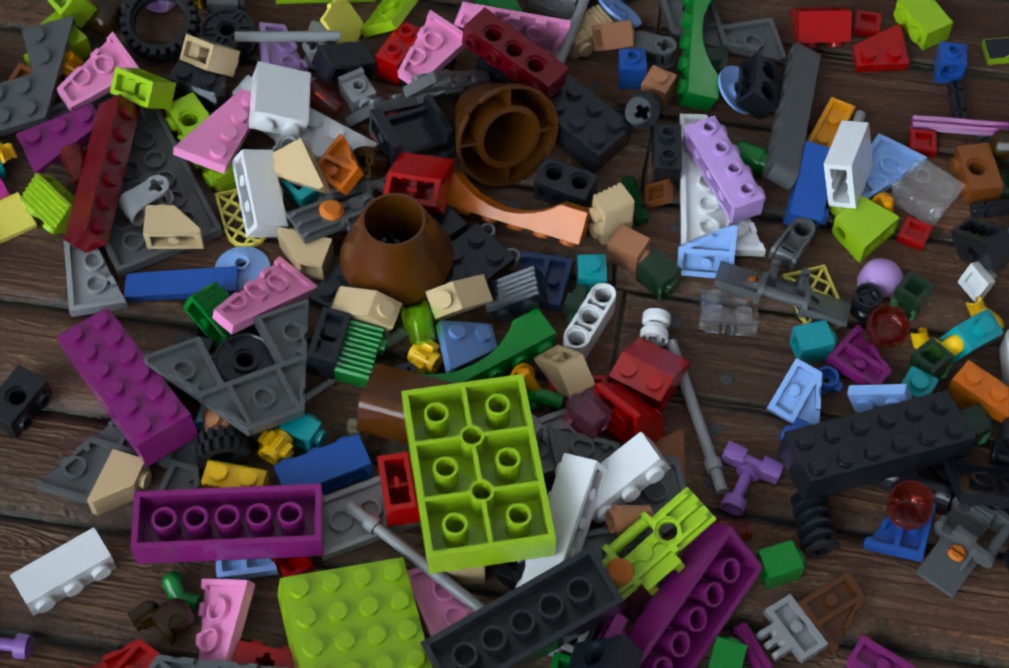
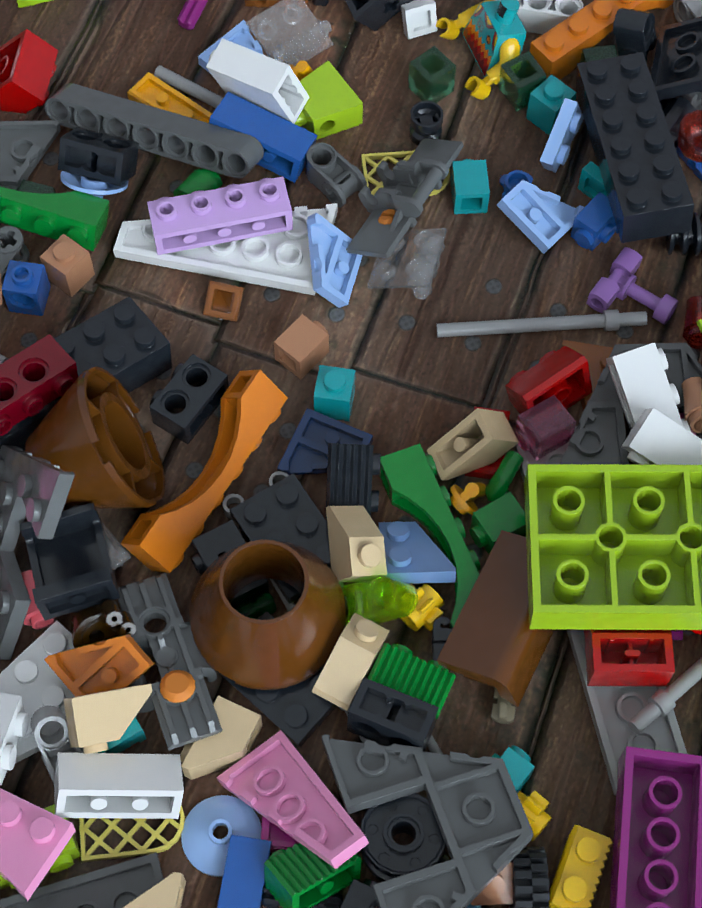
camera: 80 degrees left, 5 degrees up
(332, 465) = (567, 759): blue brick -> none
(422, 178) = (169, 558): red slope -> none
(574, 301) = (371, 418): clear green plate -> none
(592, 311) = (394, 394): white beam -> none
(609, 212) = (257, 344): tan brick -> none
(640, 213) = (225, 328): dark green axle -> none
(643, 99) = (105, 281): black piece -> none
(649, 372) = (486, 355): red slope -> none
(655, 326) = (420, 339): white wheel -> none
(659, 274) = (347, 320): clear green brick -> none
(667, 153) = (173, 276): black brick -> none
(859, 360) = (502, 147): magenta wing -> none
(866, 23) = (23, 22): red tile -> none
(881, 52) = (73, 29): red wing -> none
(881, 273) = (392, 105): lavender hair -> none
(887, 326) = (463, 111): clear red hair -> none
(914, 233) = (340, 57): red tile -> none
(923, 142) = (214, 23): red tile -> none

